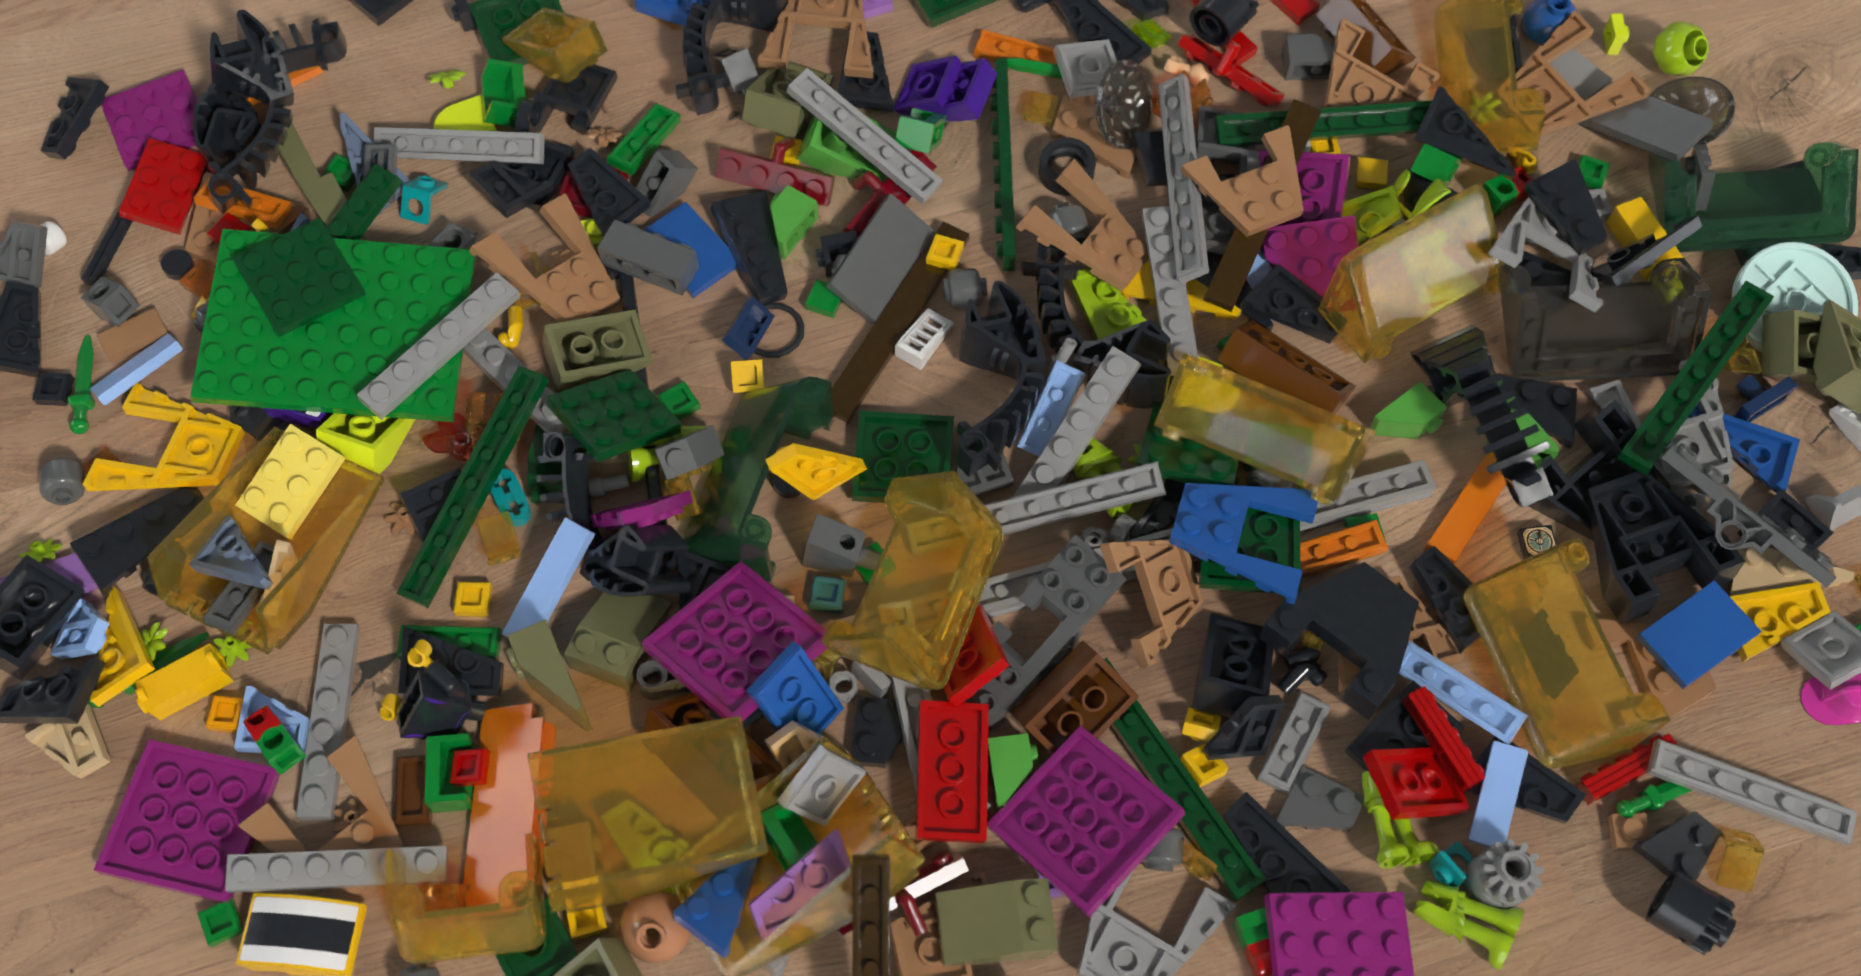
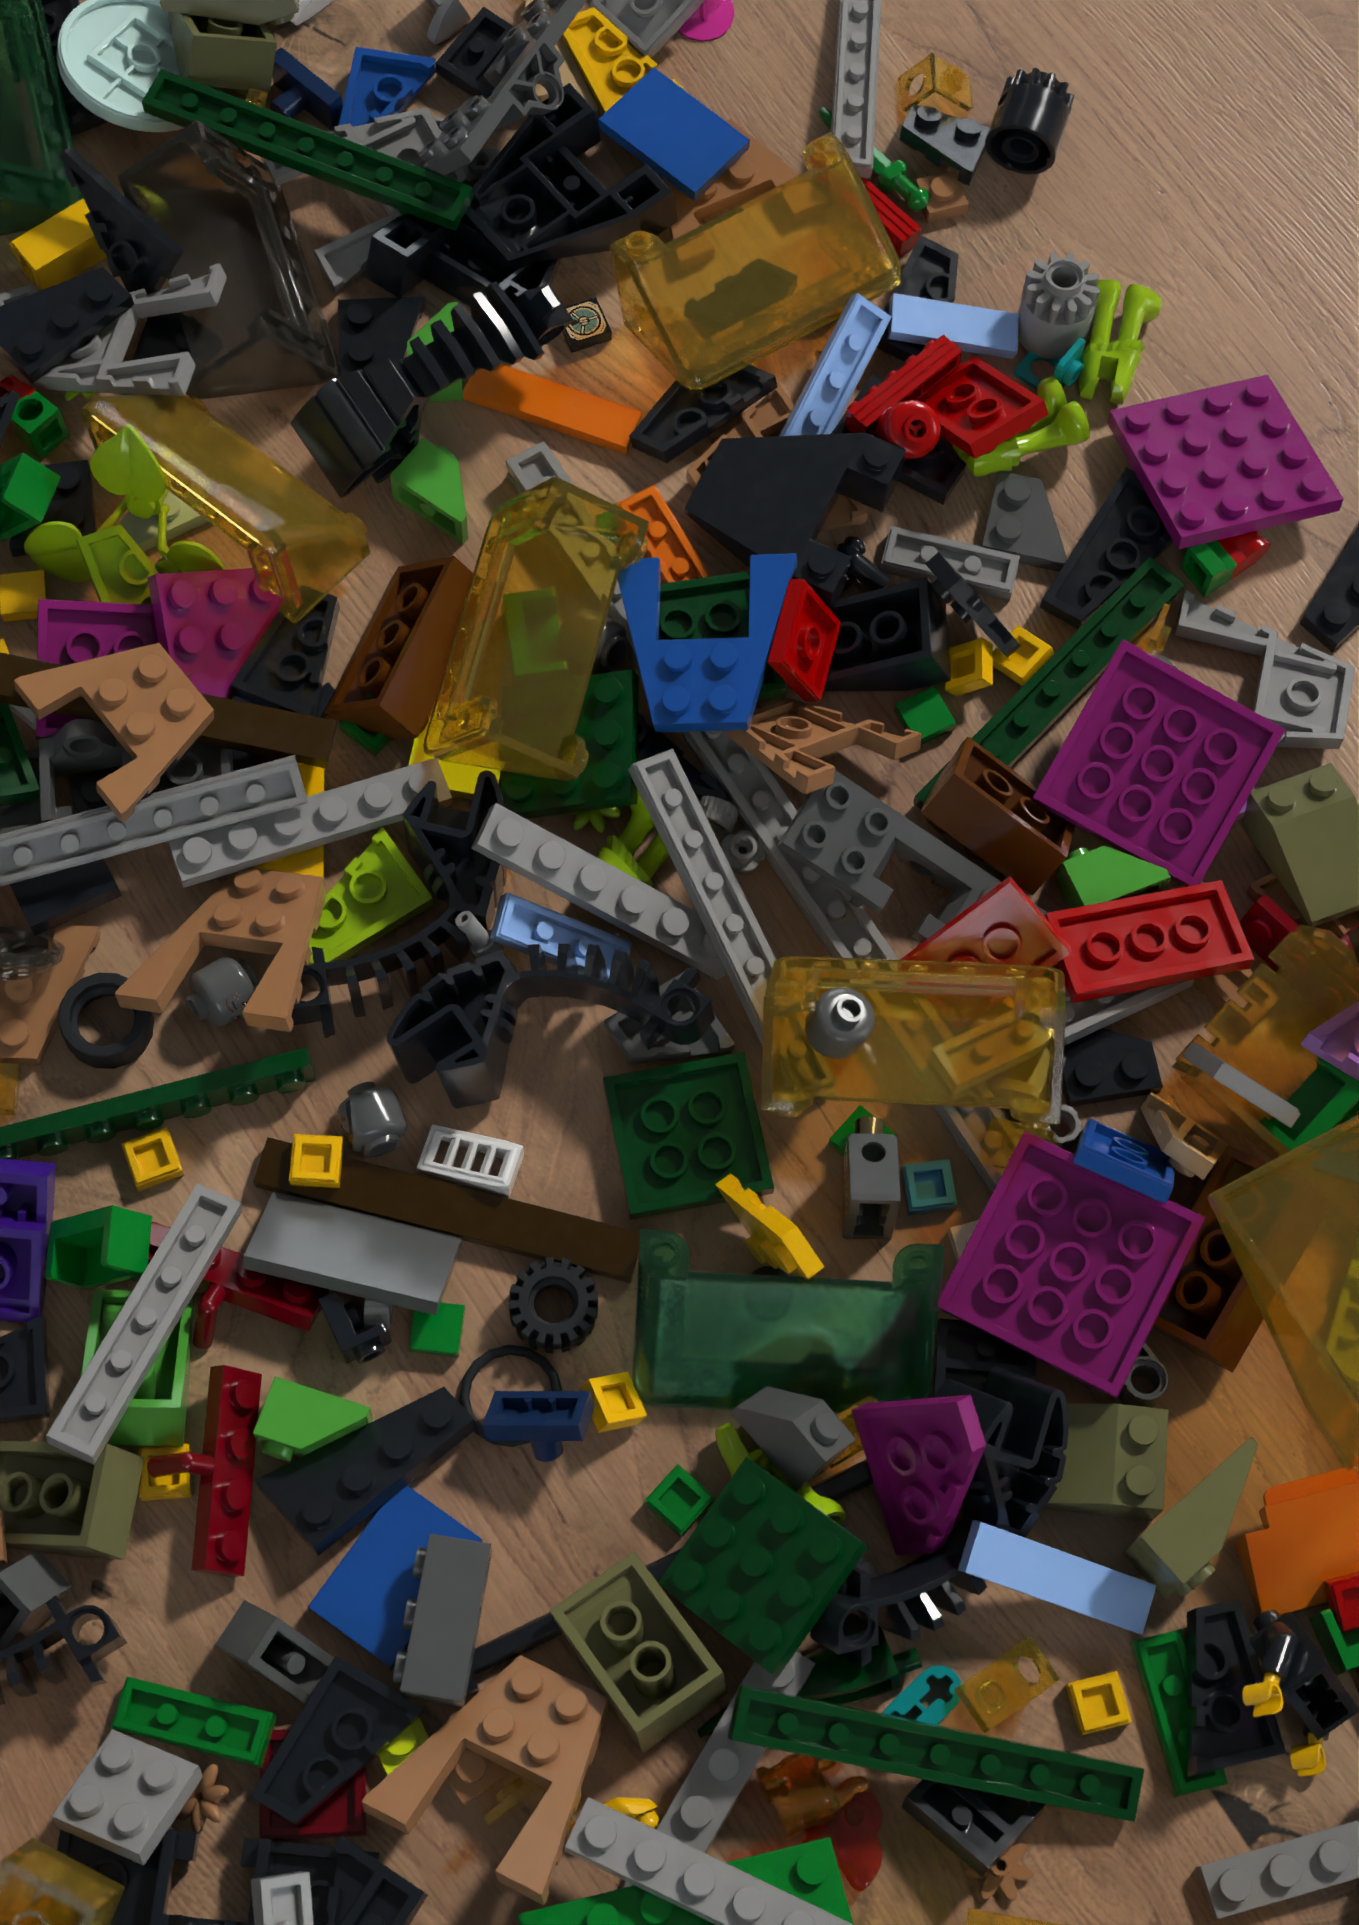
camera: 110 degrees left, 5 degrees up
(613, 97) = (127, 1796): none -> light grey plate
(813, 344) = (547, 1276): none -> black tyre
(937, 536) = (839, 1023): none -> dark grey head
(974, 178) = (152, 1159): none -> yellow tile
(1171, 688) = (925, 714): none -> green tile
(1234, 602) = (804, 641): none -> red tile
(1399, 721) = (913, 416): none -> red head

